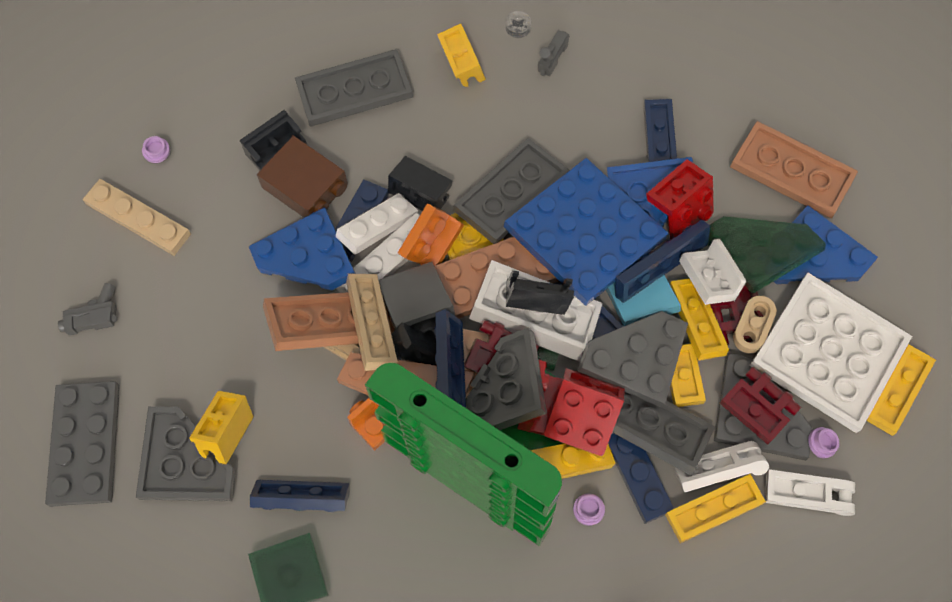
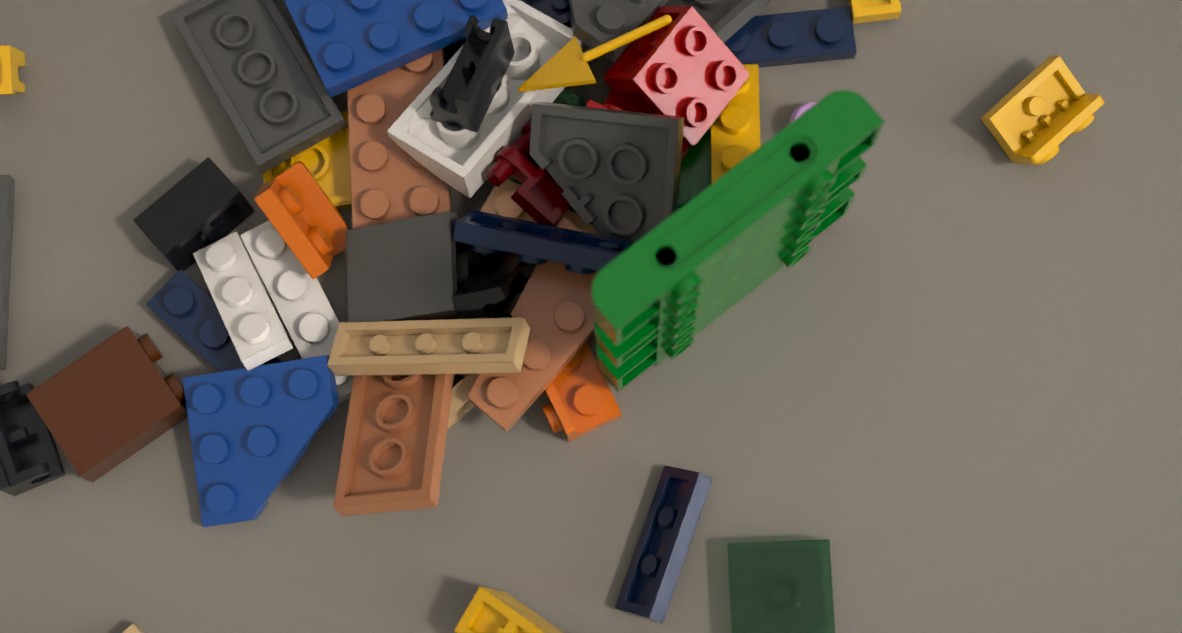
camera: 70 degrees left, 10 degrees up
(563, 344) = (570, 64): none -> yellow piece

